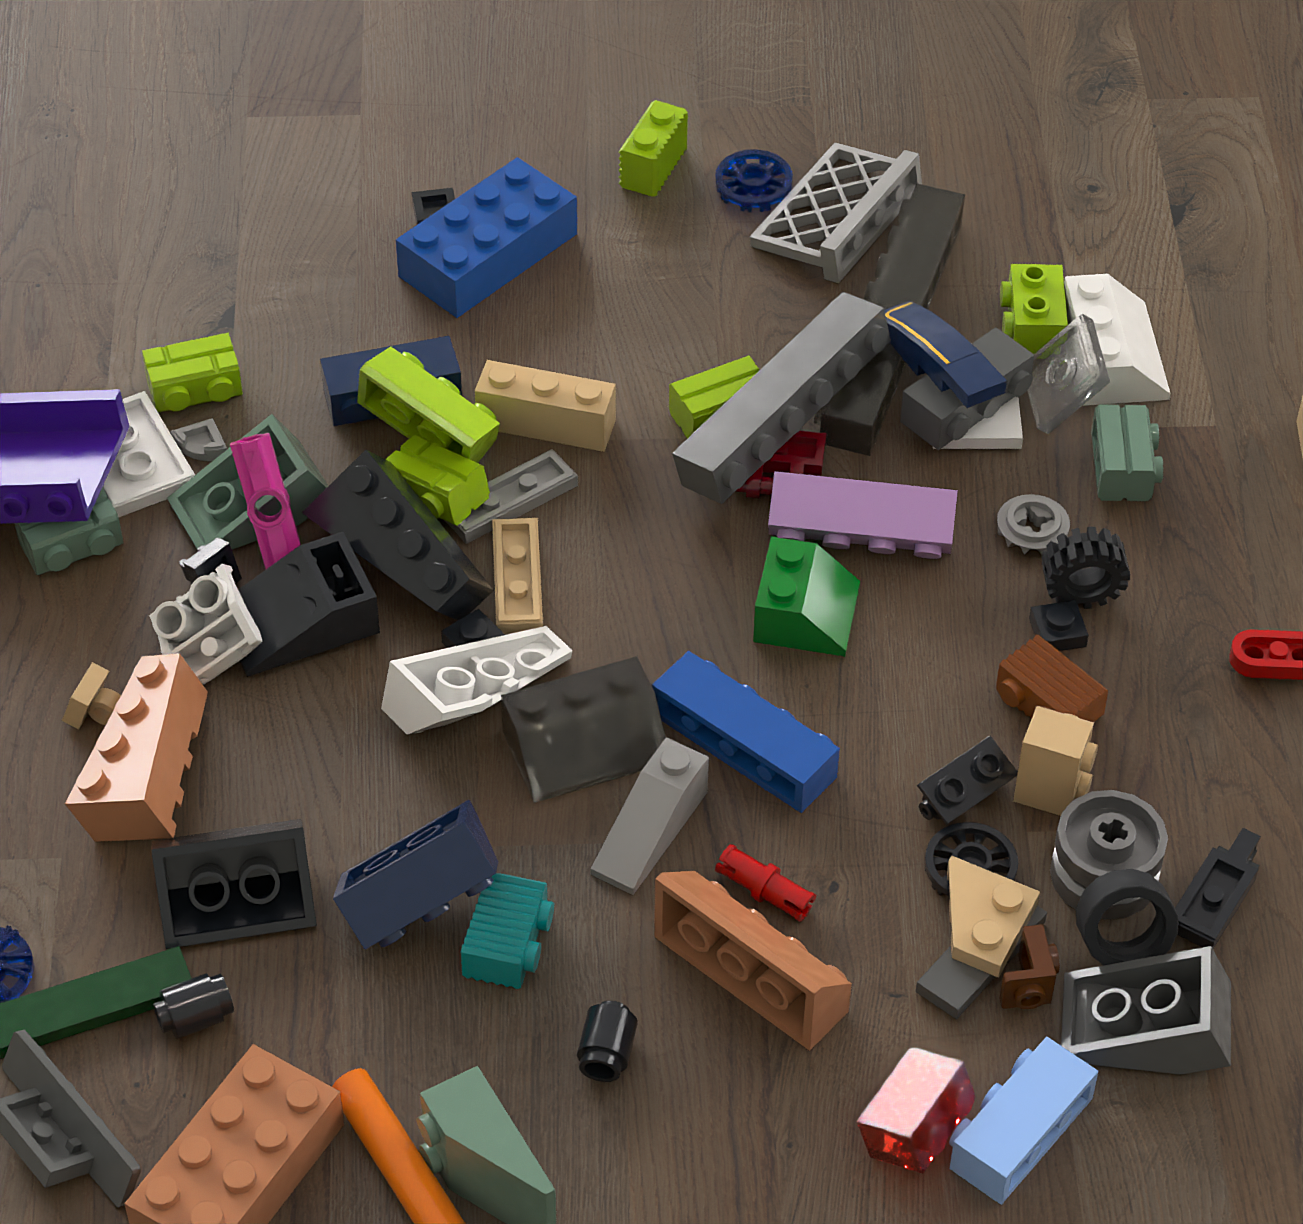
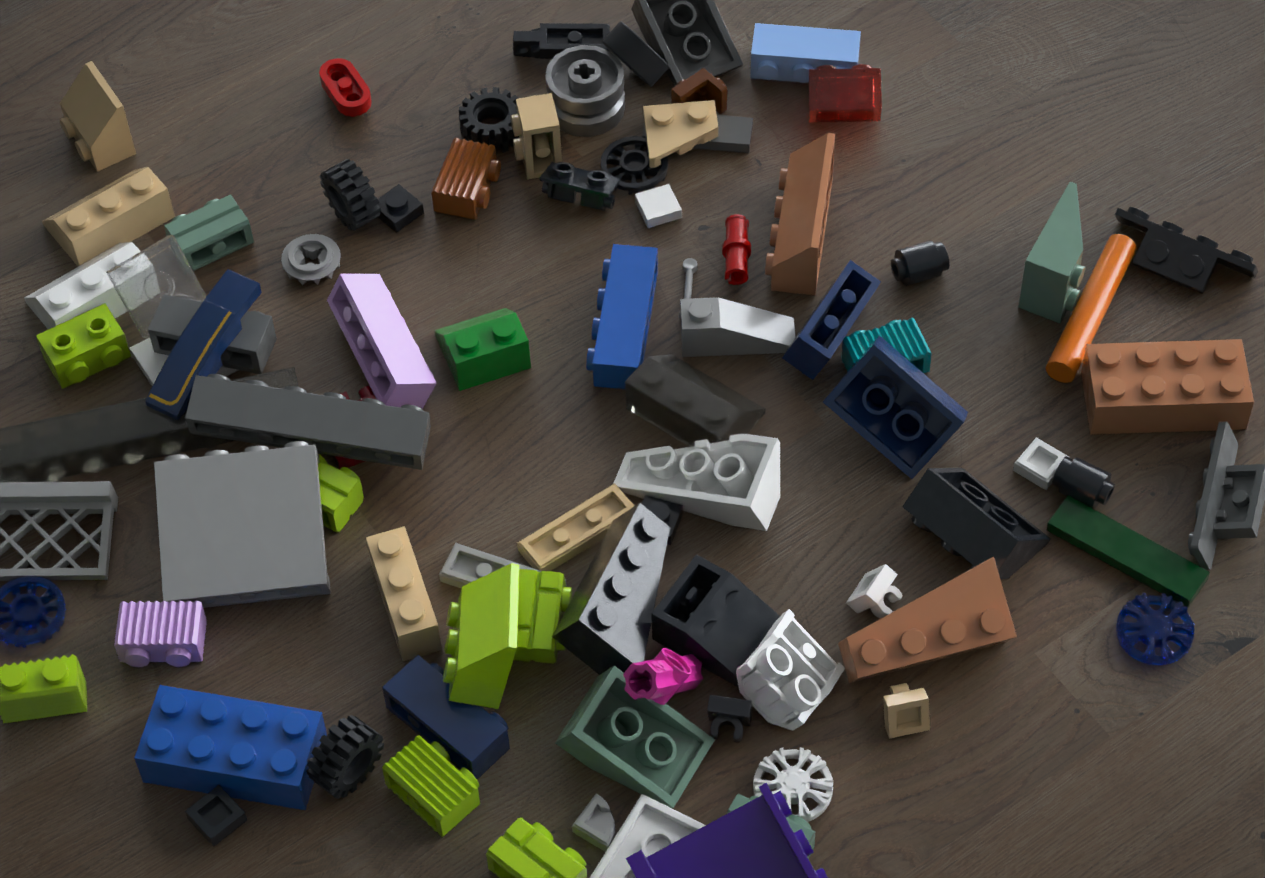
camera: 120 degrees left, 5 degrees up
(105, 588) = (795, 782): none -> white wheel
(235, 748) = (872, 590): none -> white tile
(258, 998) = (1039, 463): none -> white tile
(329, 336) = (432, 784): none -> lime brick
(404, 289) = (345, 756): none -> black tyre
(584, 893) = (831, 320): none -> dark blue brick
(648, 241) = (160, 633): none -> lavender brick
(708, 310) = (241, 526): none -> light grey panel
(782, 839) = (689, 268): none -> light grey hinge
(890, 852) = (658, 206): none -> white tile
(1136, 738) = (486, 106): none -> black tyre
(1212, 391) = (111, 215): none -> tan slope

